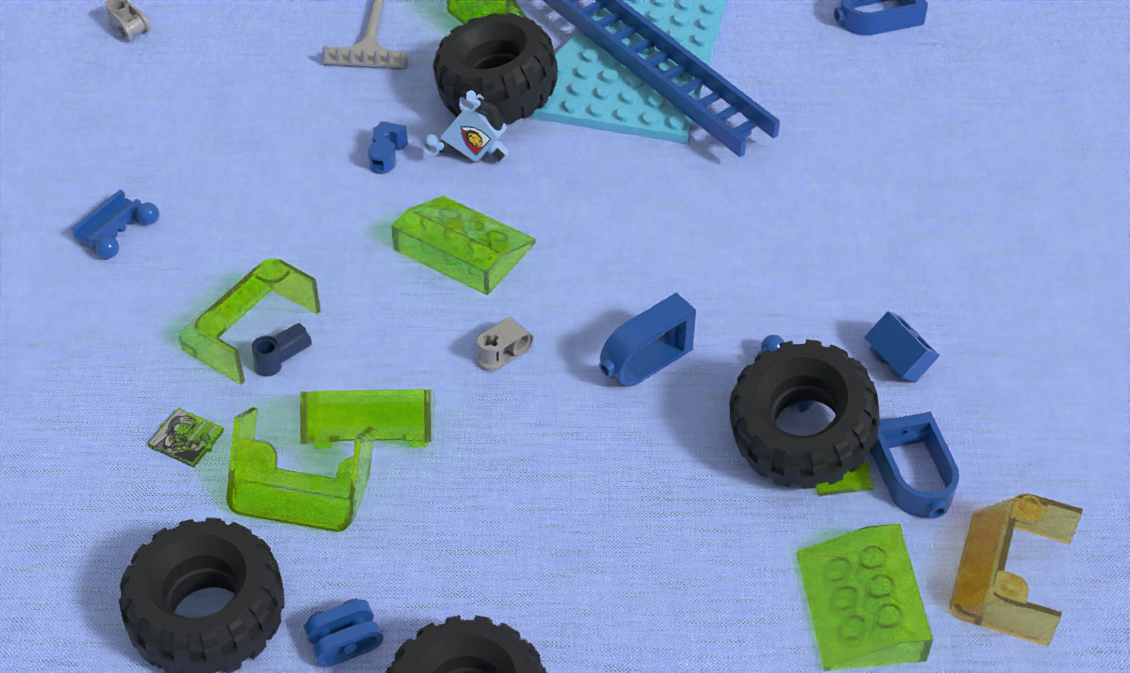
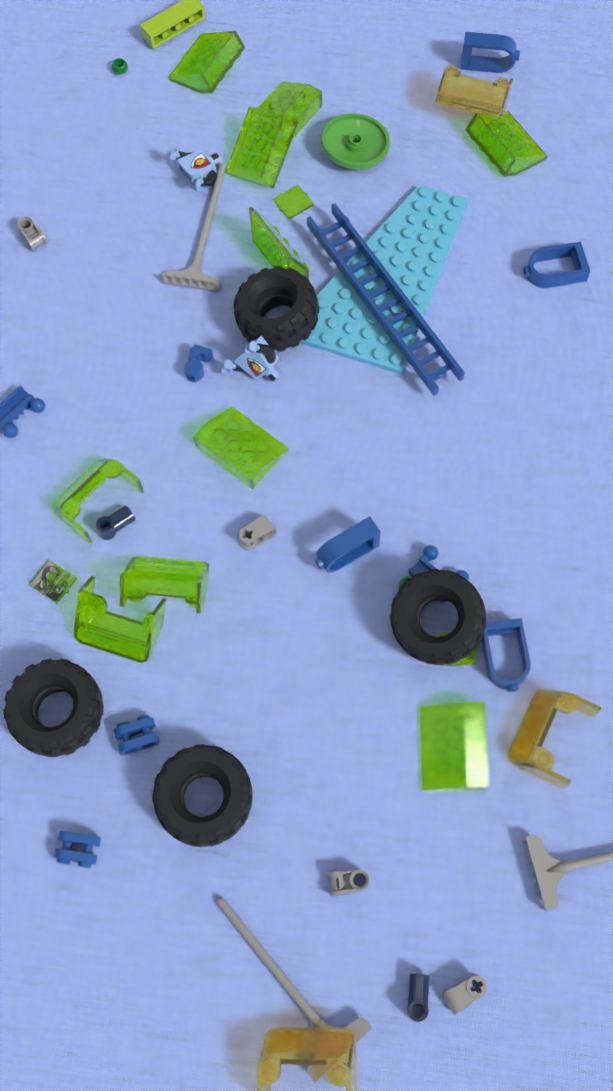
camera: 10 degrees right, 20 degrees up
(901, 347) = (513, 563): blue brick -> none

